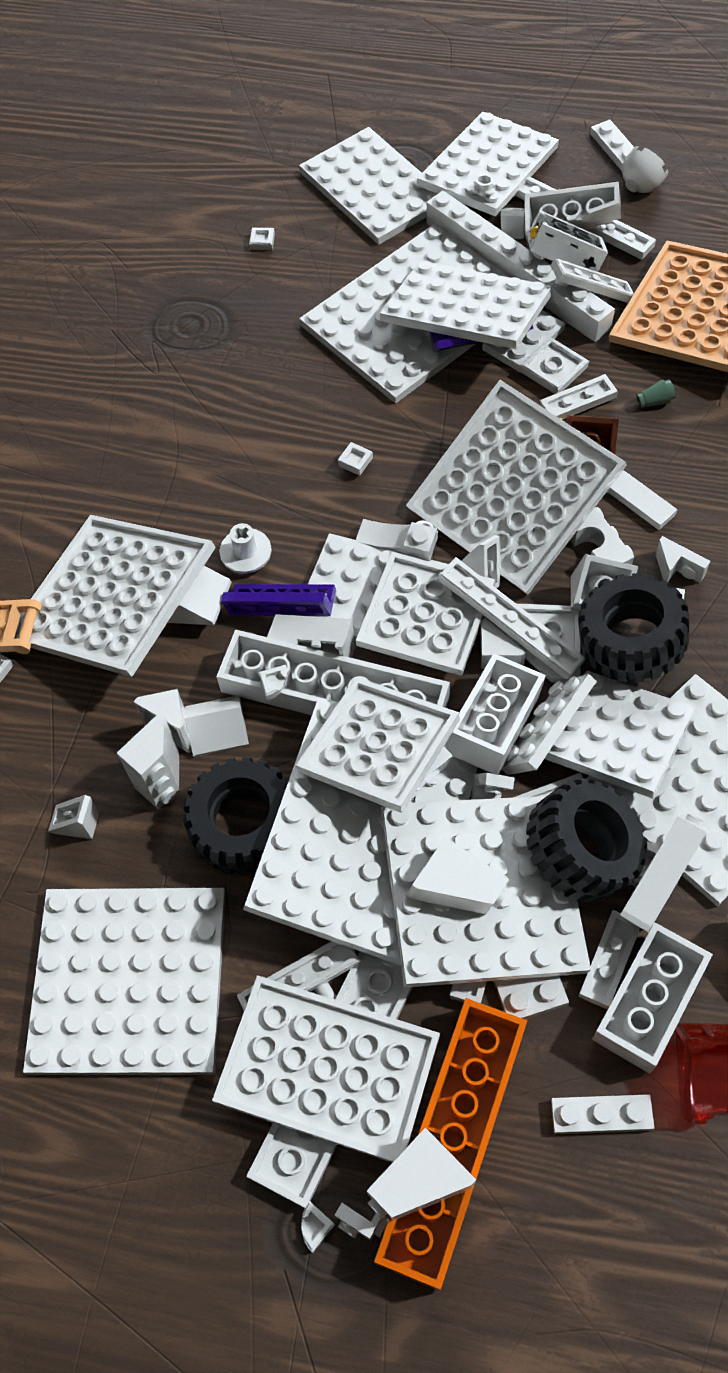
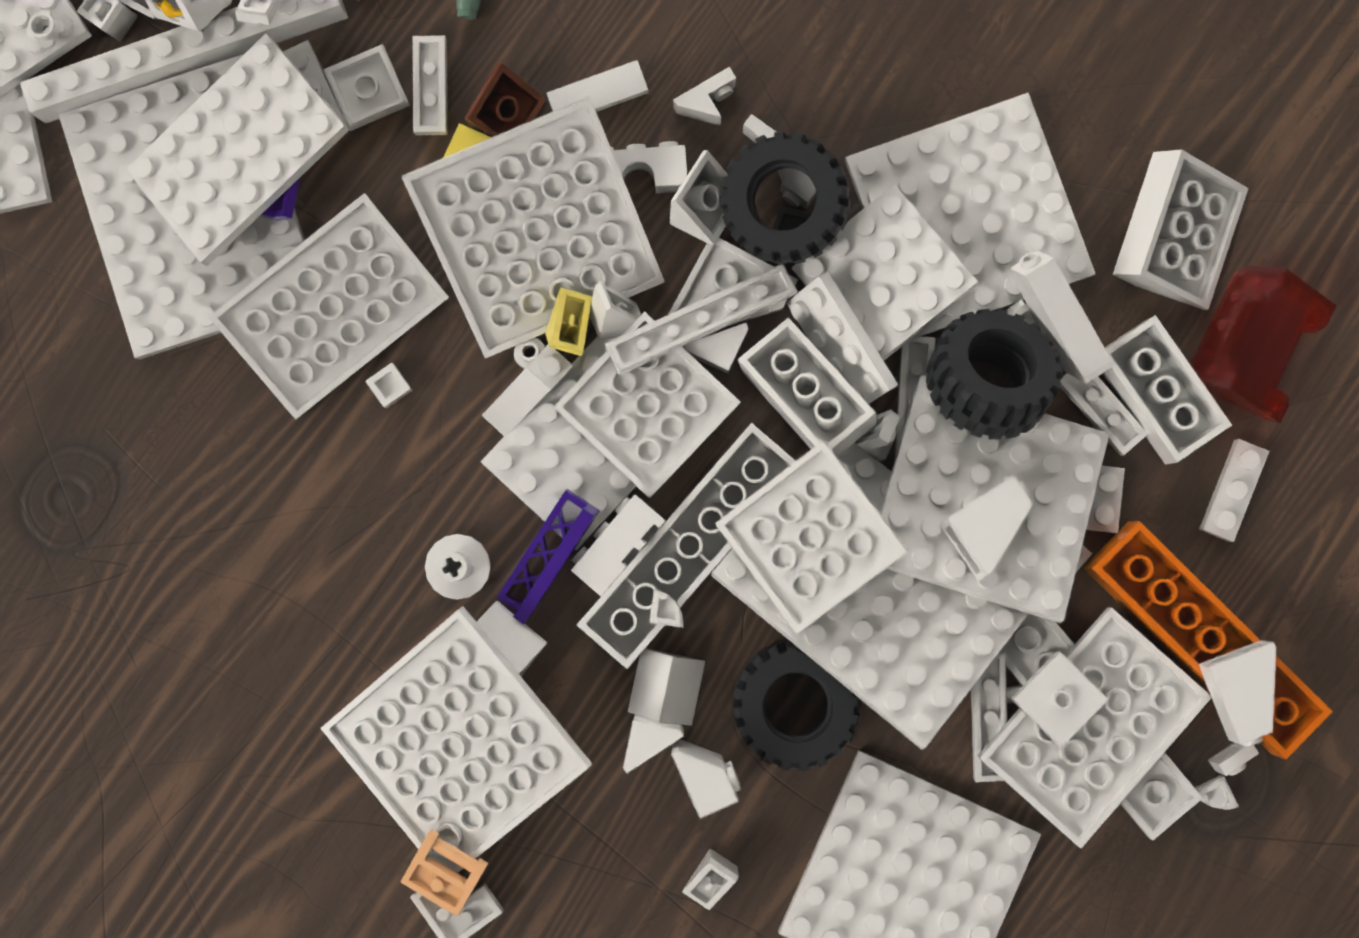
camera: 65 degrees left, 25 degrees up
(337, 1018) = (1059, 698): none -> white plate
(391, 400) = (329, 306): none -> white plate
(458, 538) = (569, 321): none -> light yellow slope

